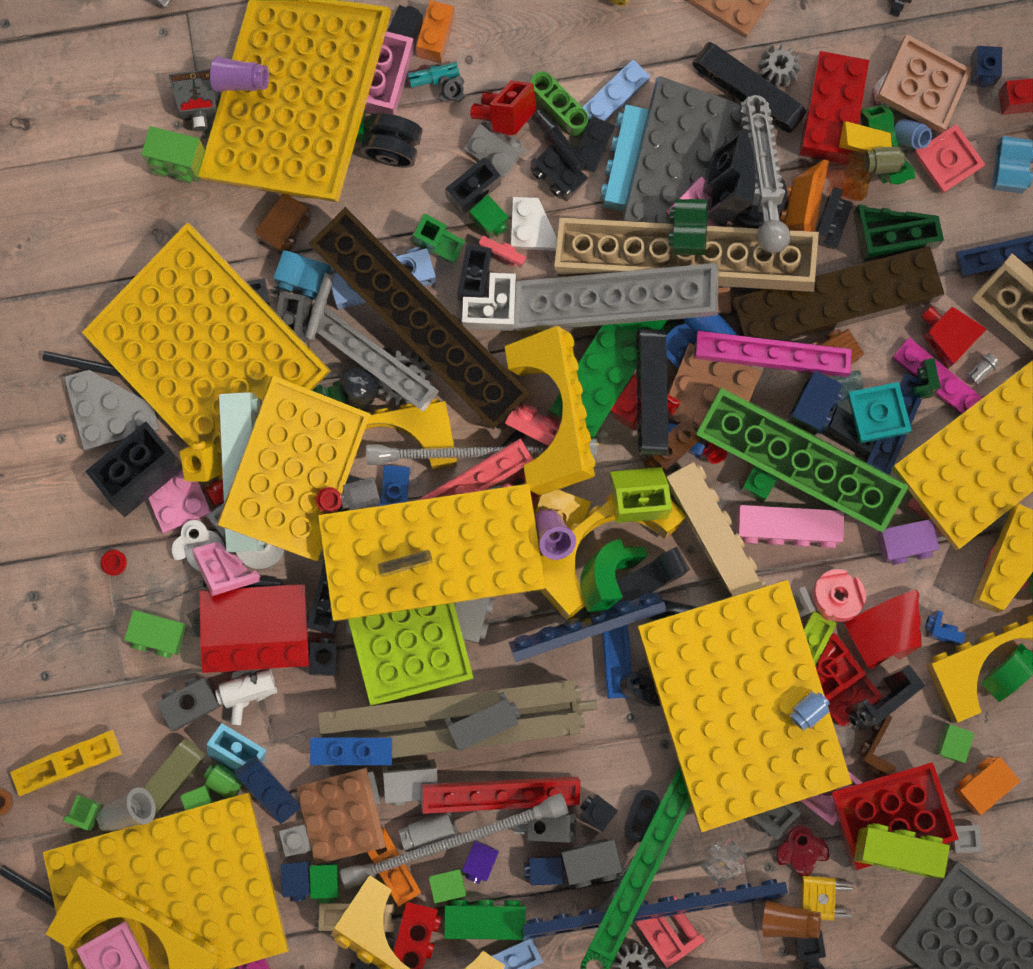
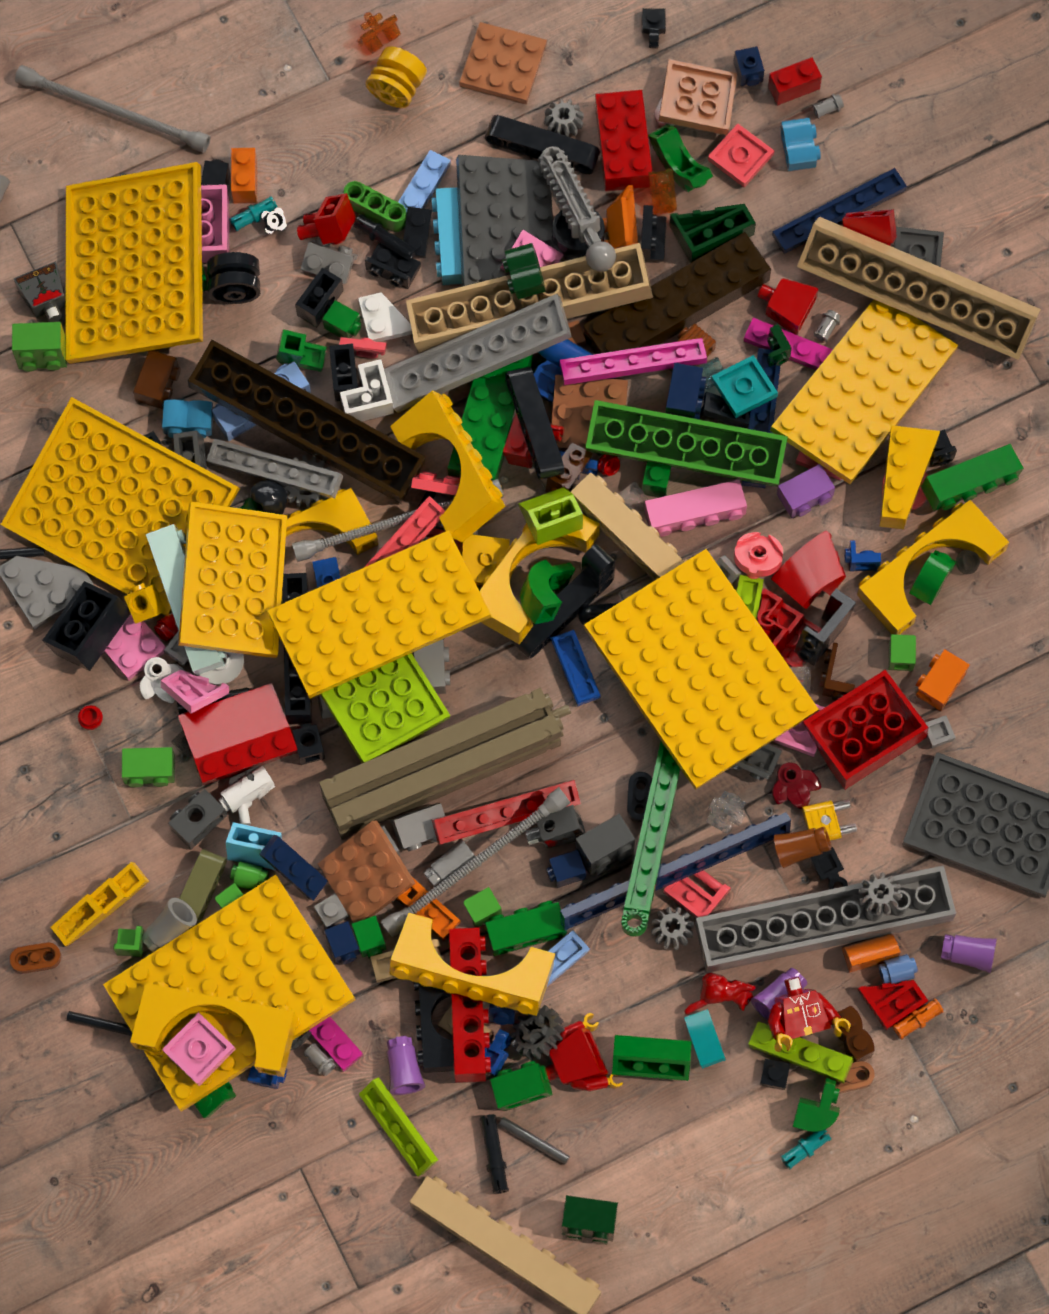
camera: 10 degrees left, 10 degrees down
(237, 75) = (78, 260): medium lavender plant -> none
(319, 306) = (211, 438): light grey piece -> none
(328, 500) = (272, 596): red plate -> none
(350, 751) = (359, 804): blue plate -> none
(360, 494) = (299, 582): clear brick -> none
(405, 563) = (359, 624): clear smoke tile -> none
(480, 862) = (505, 878): dark purple brick -> none
(483, 723) = (471, 745): dark grey brick -> none
(554, 536) = (485, 568): medium lavender plant -> none
(588, 626) = (529, 646): dark blue plate -> none
(597, 811) = (598, 803): black brick -> none
(639, 694) = (607, 686): black beam -> none
(730, 179) = (548, 222): black slope -> none
(810, 710) = (759, 652): medium blue brick -> none
(863, 138) = (659, 158): yellow slope -> none
(884, 160) = (680, 168): olive brick -> none
(902, 851) = (877, 746): lime brick -> none
(912, 134) = (700, 142): medium blue brick -> none

